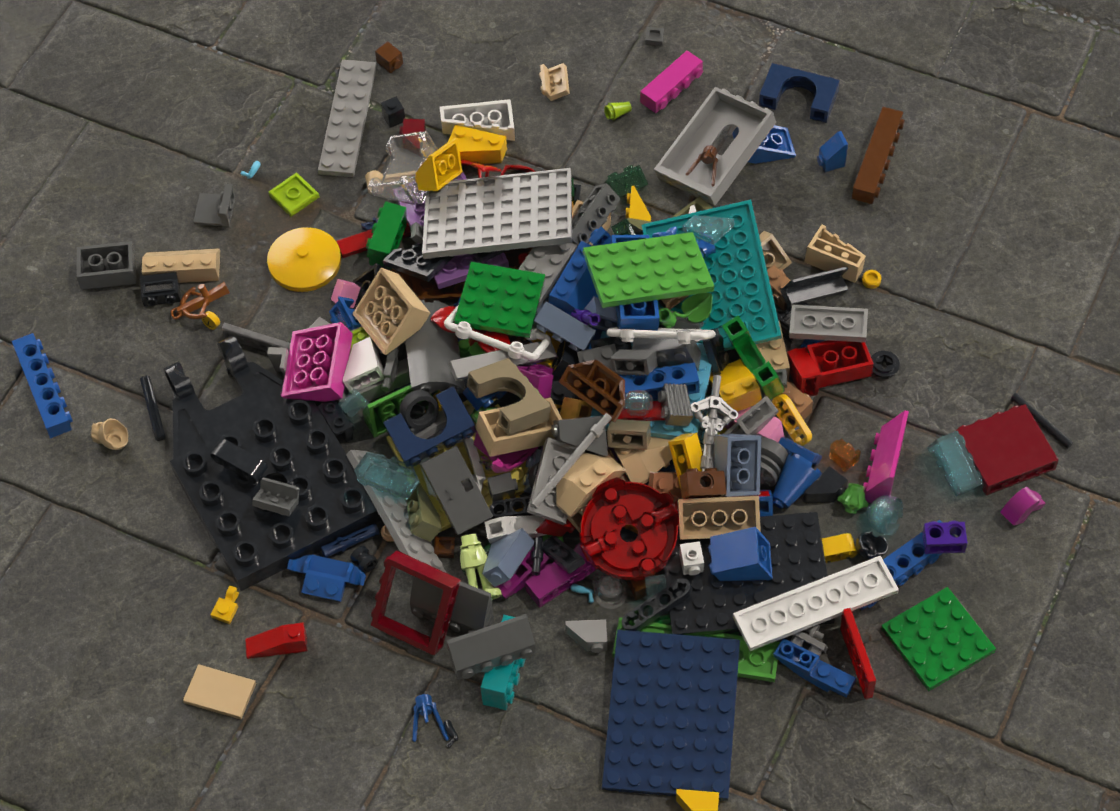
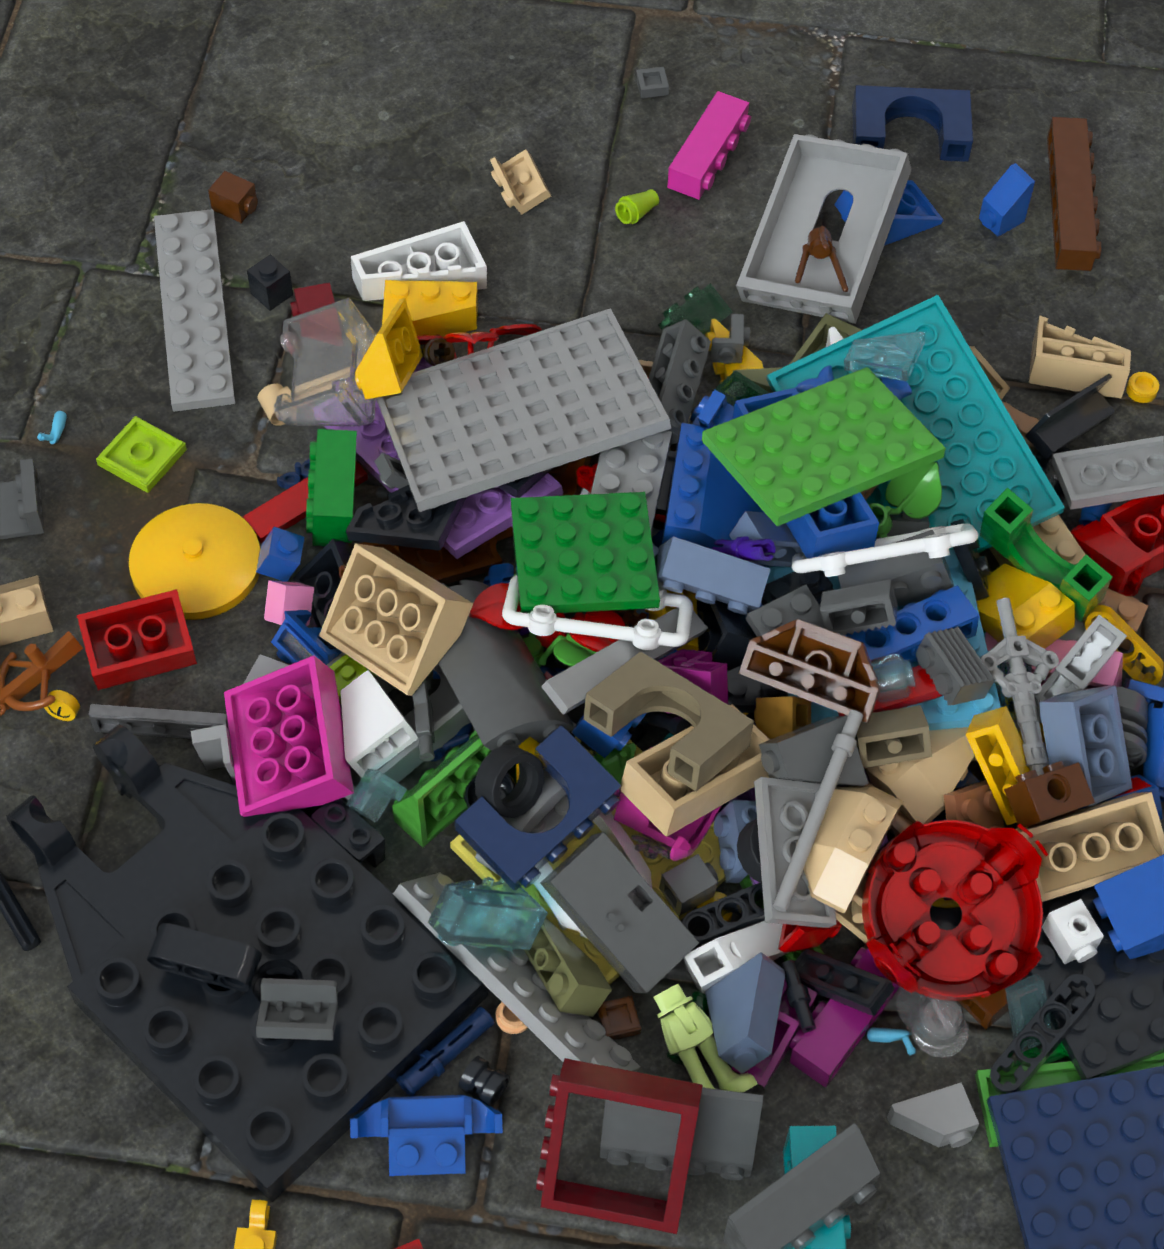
camera: 20 degrees left, 0 degrees up
(258, 294) = (136, 639): none -> red brick
(348, 265) = (280, 554): none -> blue brick
(468, 167) = (433, 344): none -> dark brown bush
(635, 205) = (731, 349): none -> dark grey bracket

